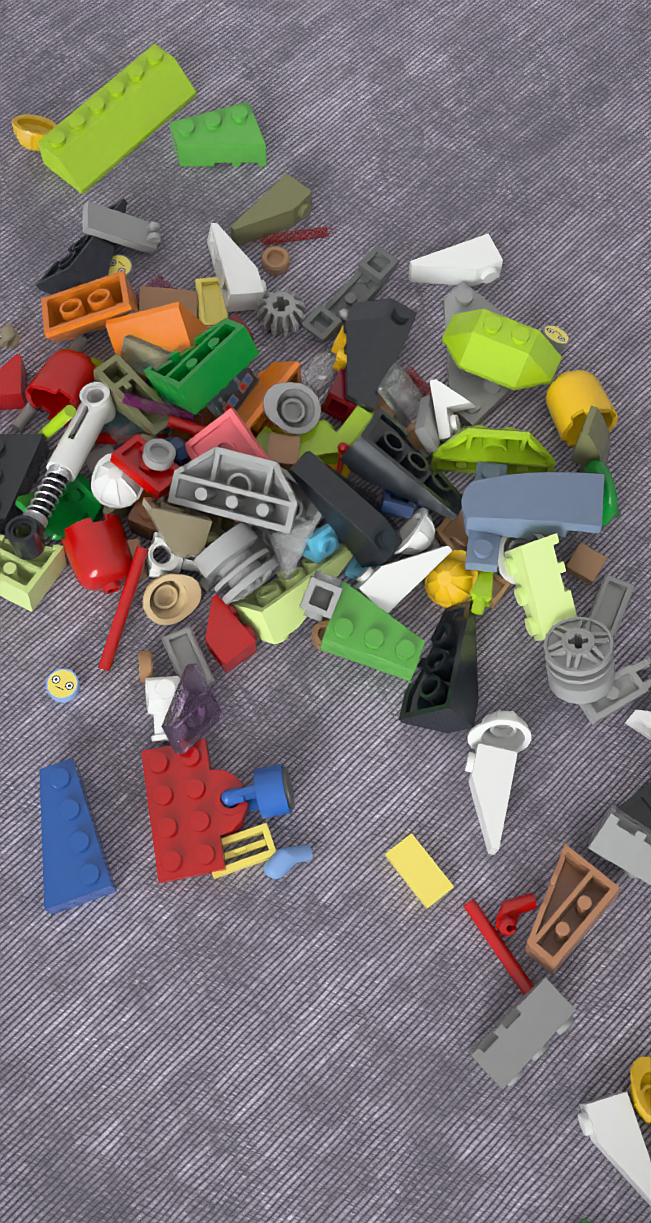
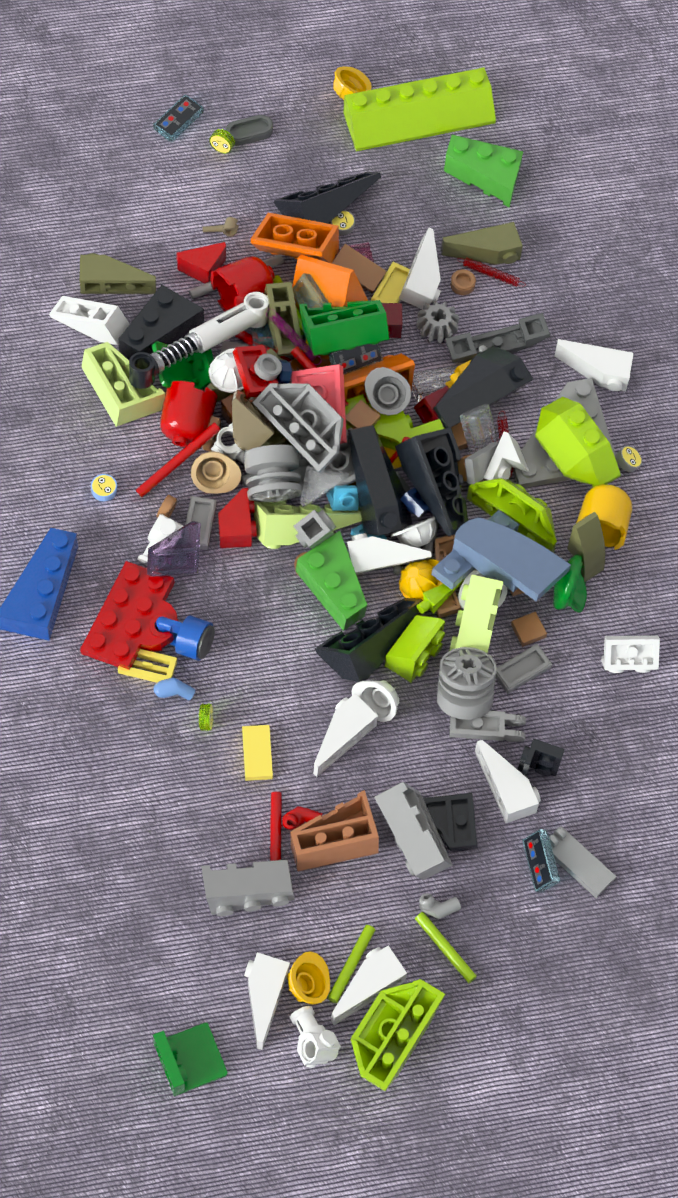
camera: 30 degrees right, 5 degrees down
(58, 421) = (217, 306): lime bar -> none
(120, 228) = (361, 193): light grey hinge -> none
(342, 869) = (205, 717): none -> clear neon green tile
(501, 652) = (415, 647): none -> lime slope

